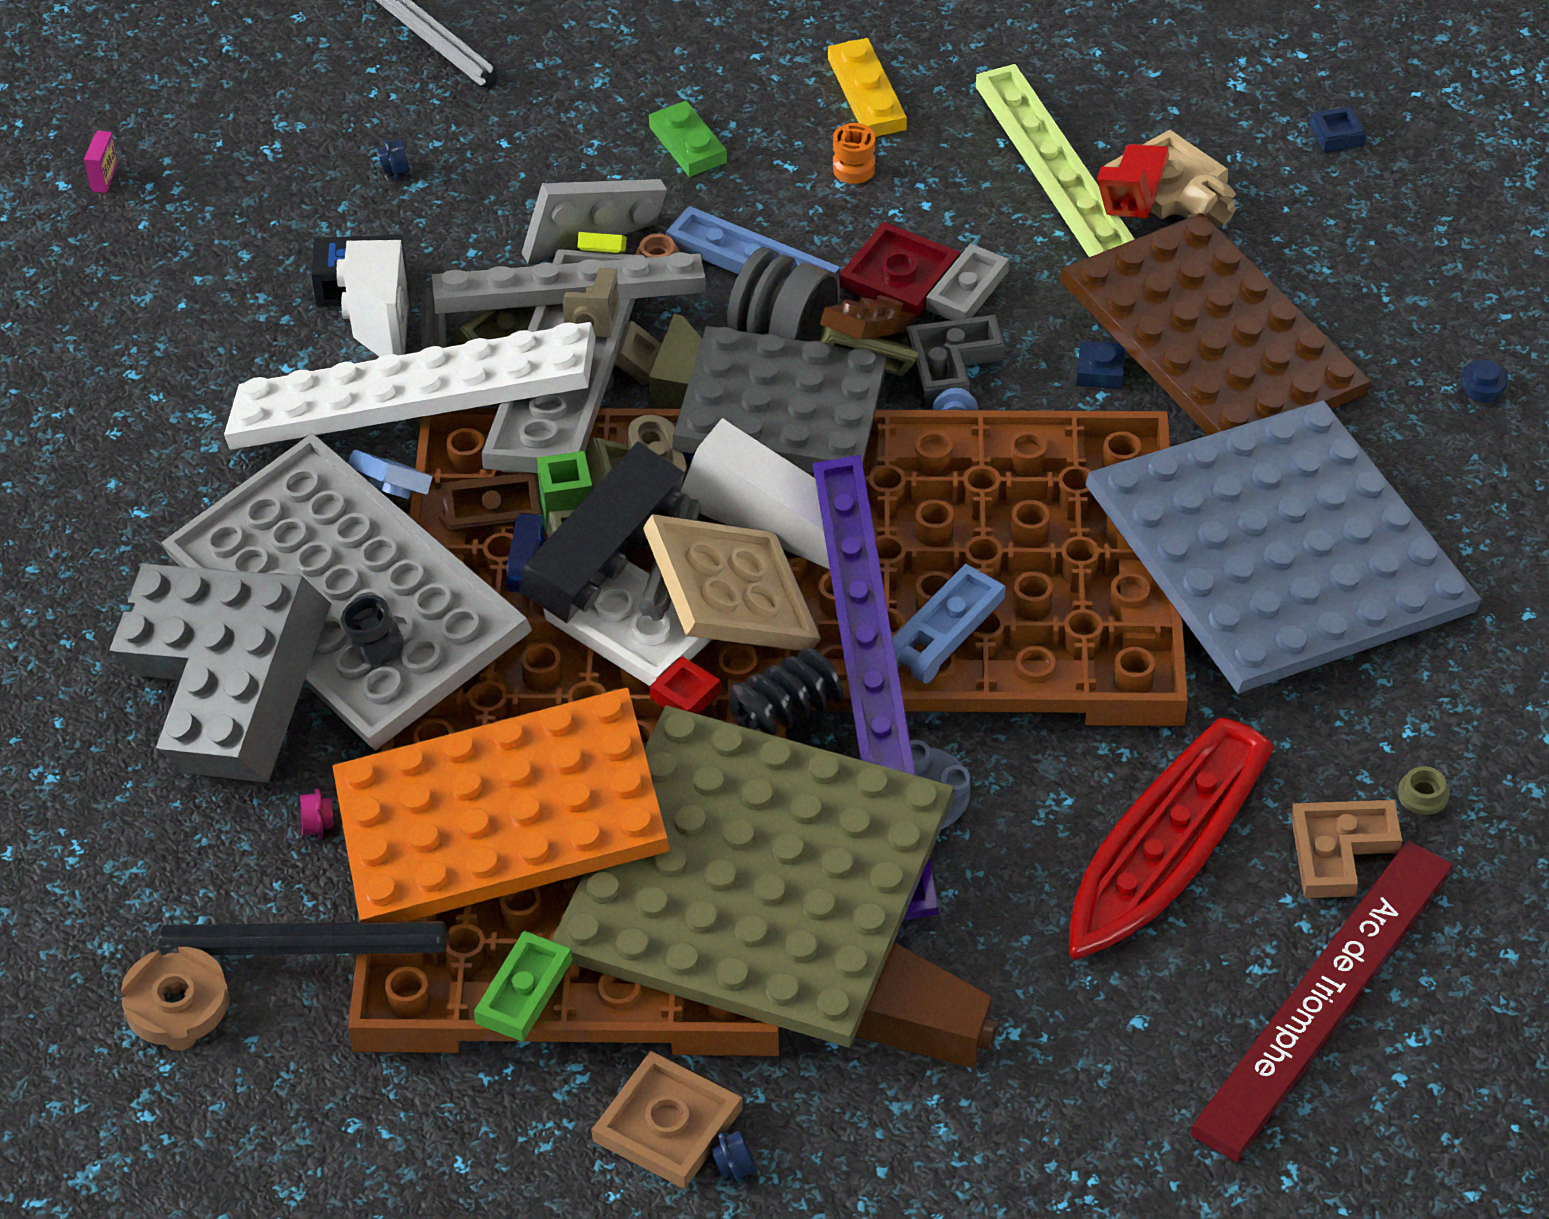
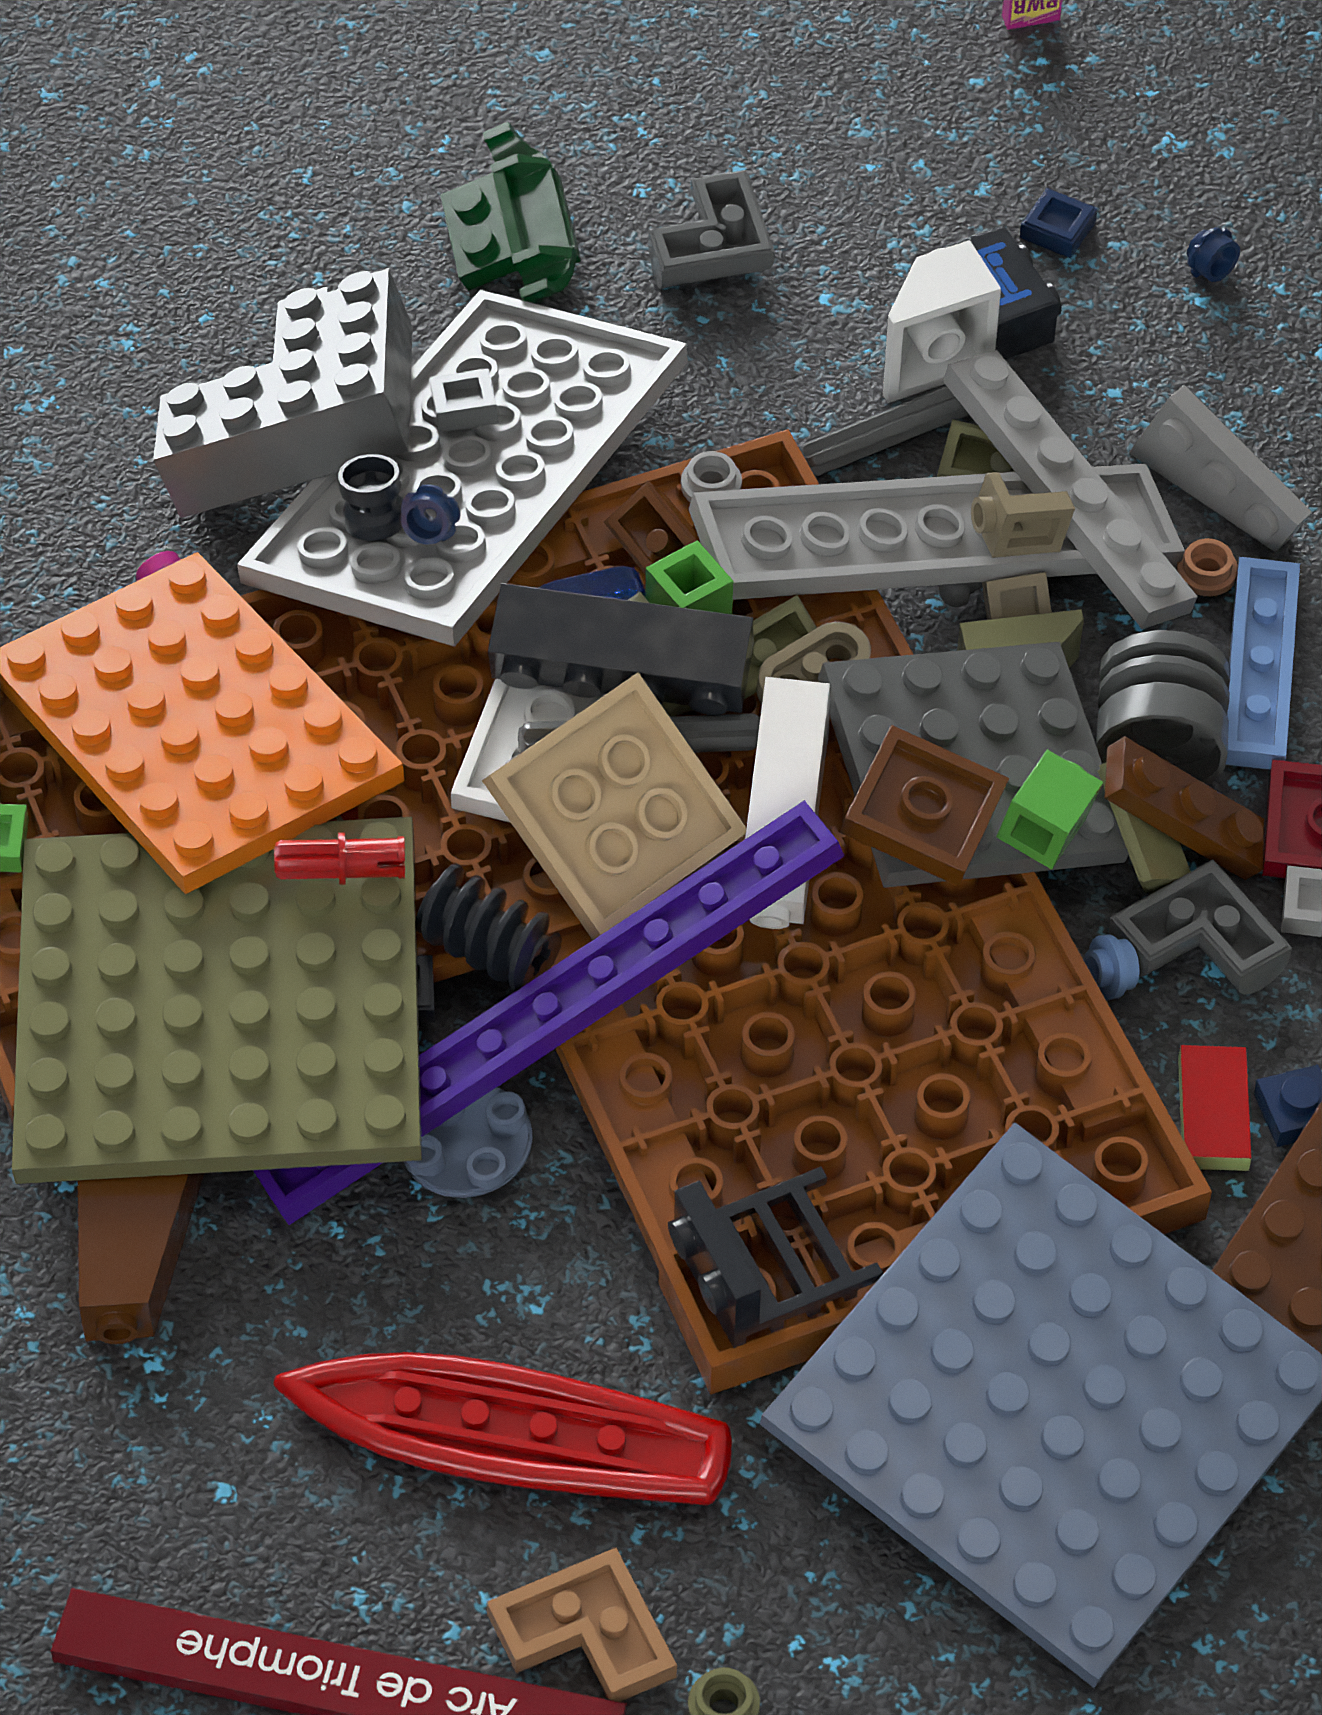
camera: 65 degrees right, 5 degrees up
(106, 506) = (513, 221): none -> dark green plate
(205, 391) = (721, 245): none -> dark grey brick
(299, 557) = (464, 400): none -> dark grey plate
(307, 223) = (1058, 223): none -> dark blue tile
(390, 475) = (655, 434): medium blue plate -> none
(411, 385) = (808, 406): white plate -> none
(411, 601) = (423, 527): none -> dark blue plate
(452, 455) = (710, 473): none -> light grey plate
(602, 242) = (1183, 502): neon yellow tile -> none
(685, 687) = (456, 831): red plate -> none
(700, 742) = (340, 858): none -> red axle
(831, 417) = (924, 805): none -> reddish brown plate
(862, 363) = (1049, 809): none -> bright green brick
(946, 621) = (692, 1056): medium blue plate -> none
(1071, 393) = (1215, 1106): none -> red tile
(1125, 650) = (729, 1274): none -> black plate

